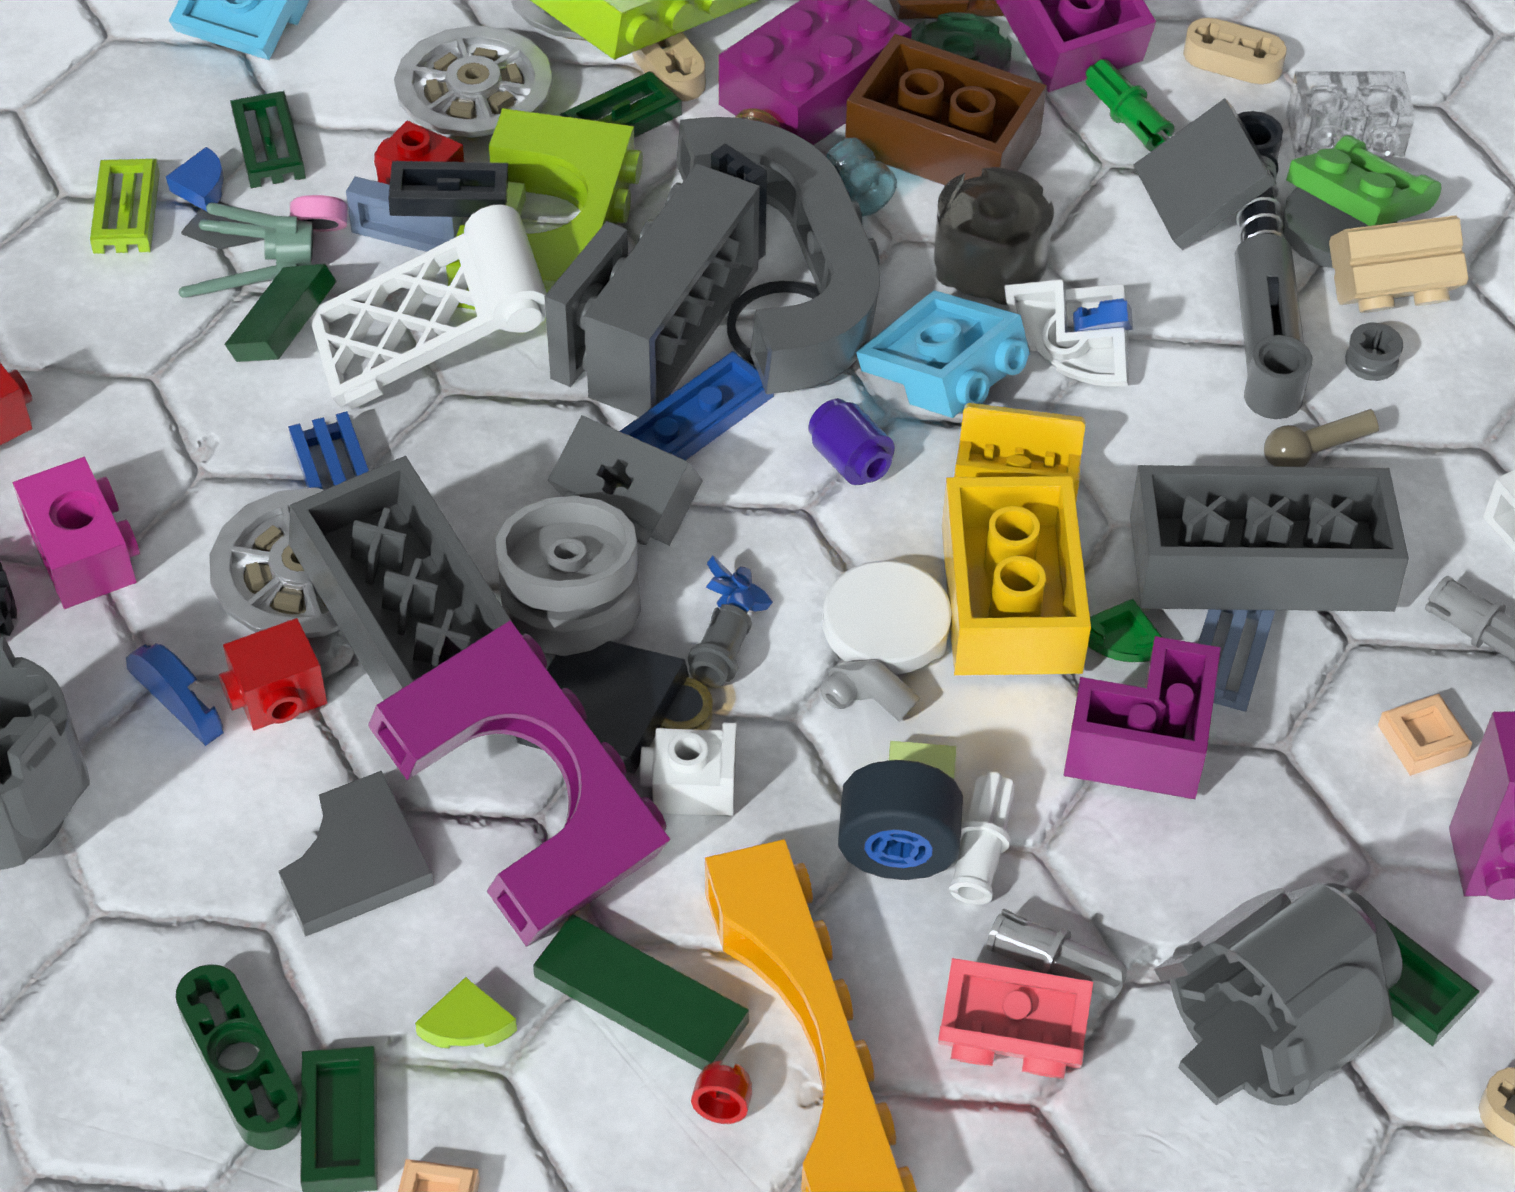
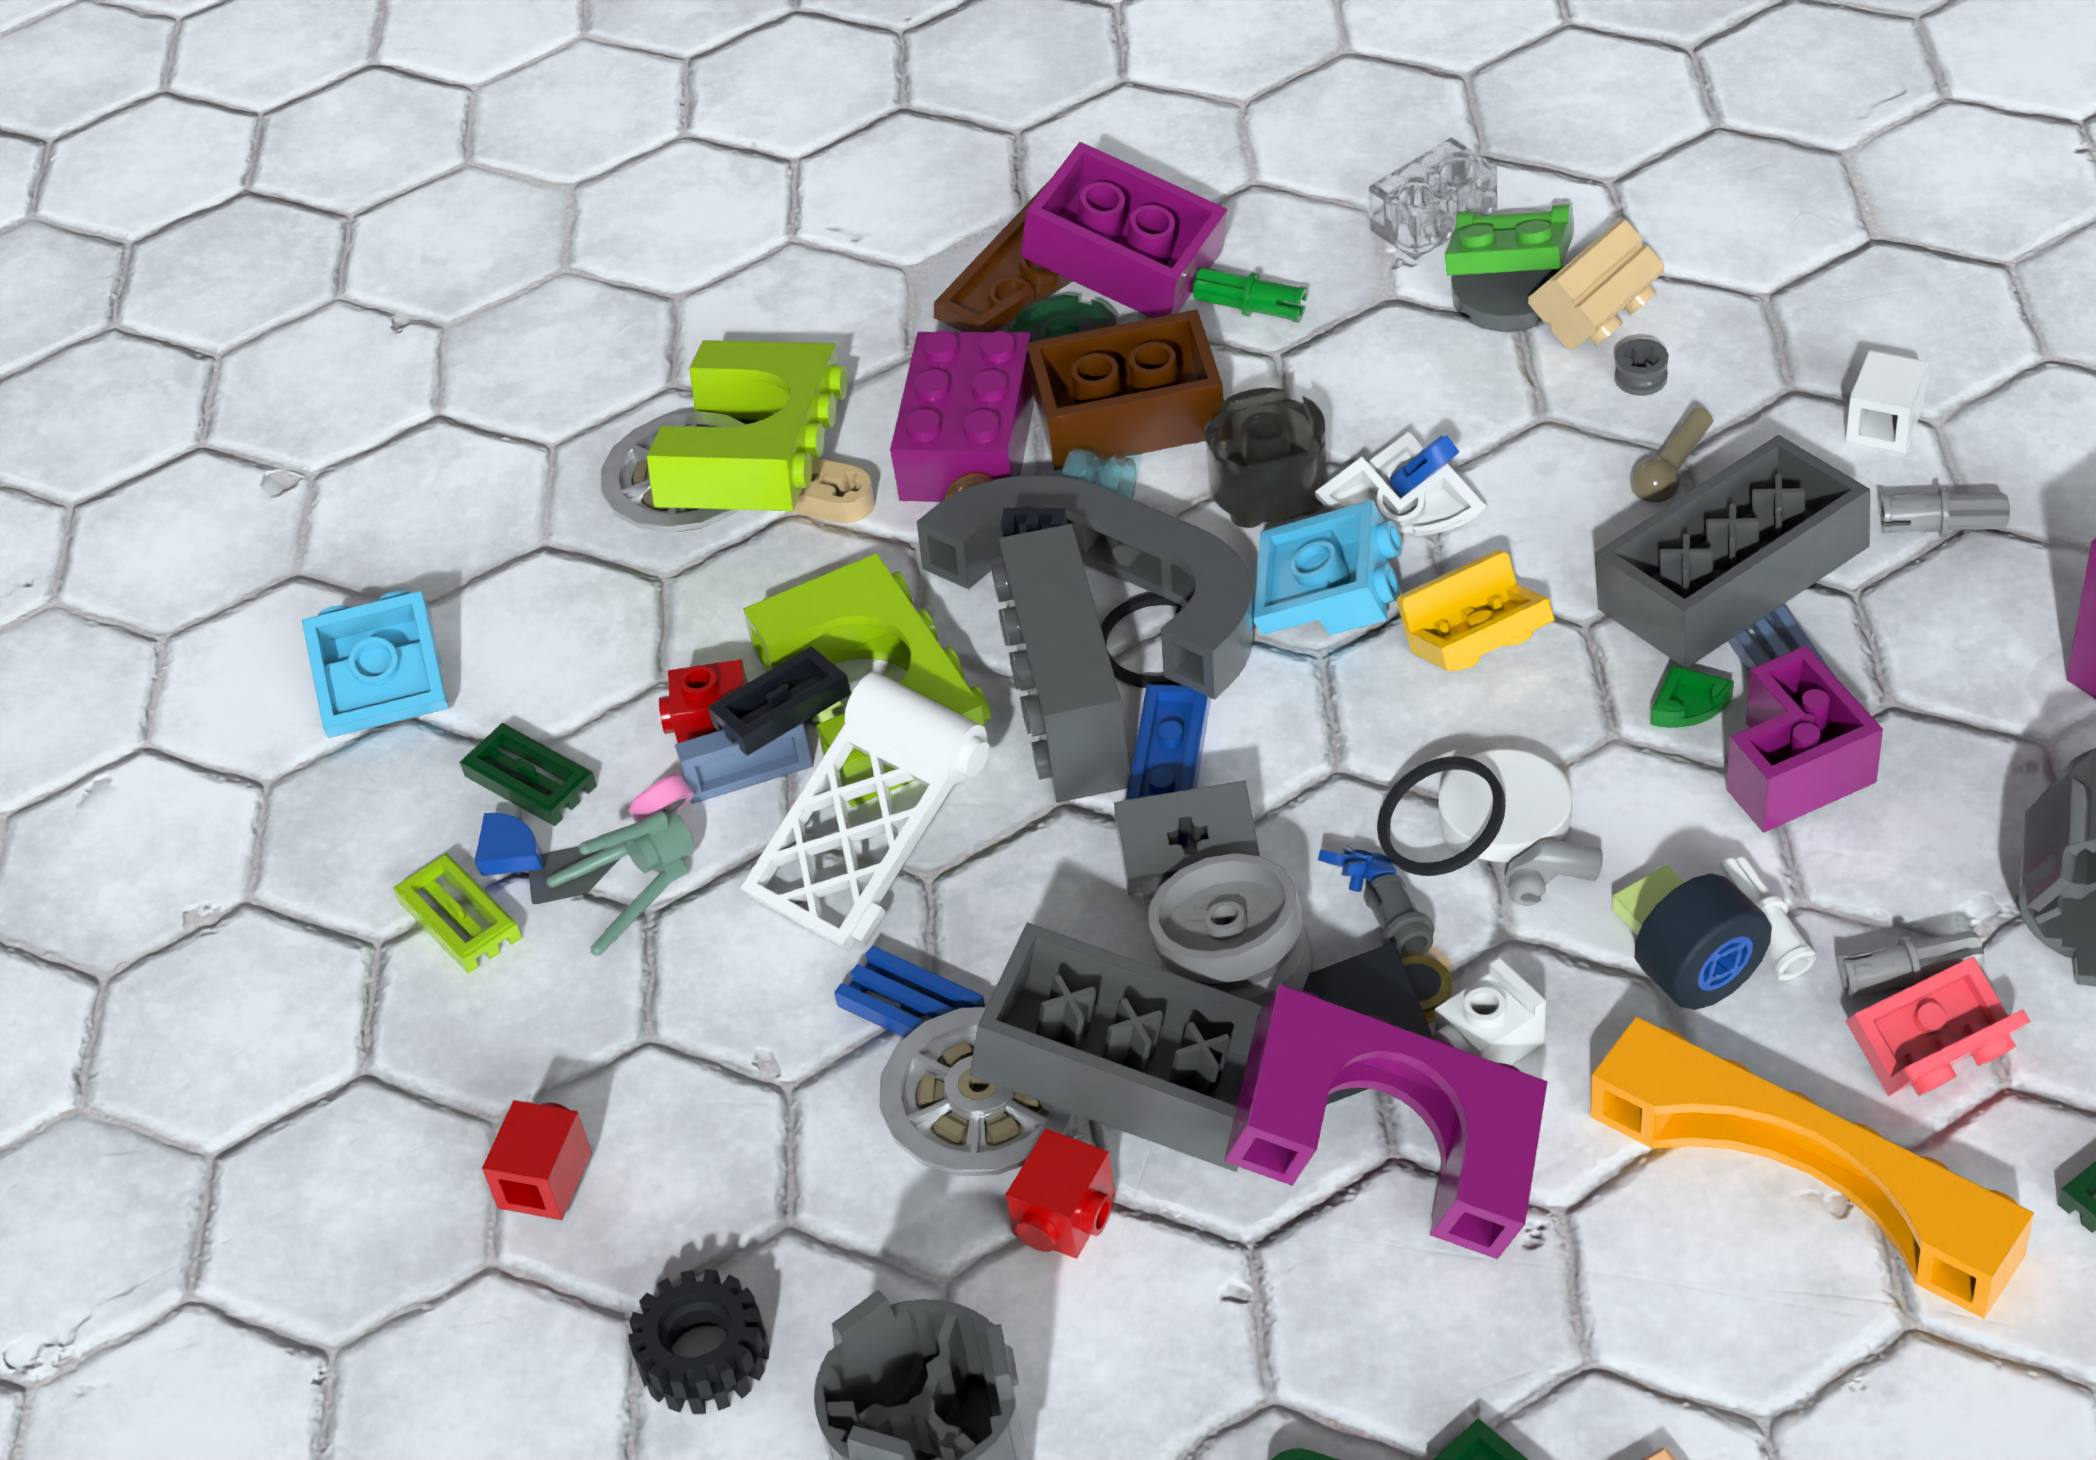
camera: 30 degrees left, 5 degrees down
(76, 531) = (708, 1206): dark pink brick -> none
(168, 681) = (978, 1266): blue tile -> none
(280, 313) = (718, 905): dark green tile -> none
(359, 857) = (1291, 1288): dark grey tile -> none
(465, 1019) = (1522, 1344): lime tile -> none
(467, 76) = (672, 607): flat silver piece -> none
(568, 296) = (1004, 717): dark grey tile -> none
(641, 993) = (1636, 1223): dark green tile -> none
(642, 114) = (814, 538): dark green tile -> none
(718, 1106) = (1783, 1246): red hinge -> none
(840, 625) = (1470, 853): none -> black piece
(851, 441) = (1326, 690): dark purple brick -> none
(1015, 576) = (1580, 701): yellow brick -> none
(1204, 174) = (1379, 308): dark grey tile -> none
(1234, 50) = (1284, 204): tan beam -> none
(1268, 293) = (1586, 417): dark grey piece -> none
(1424, 734) = (1981, 622): light nougat tile -> none

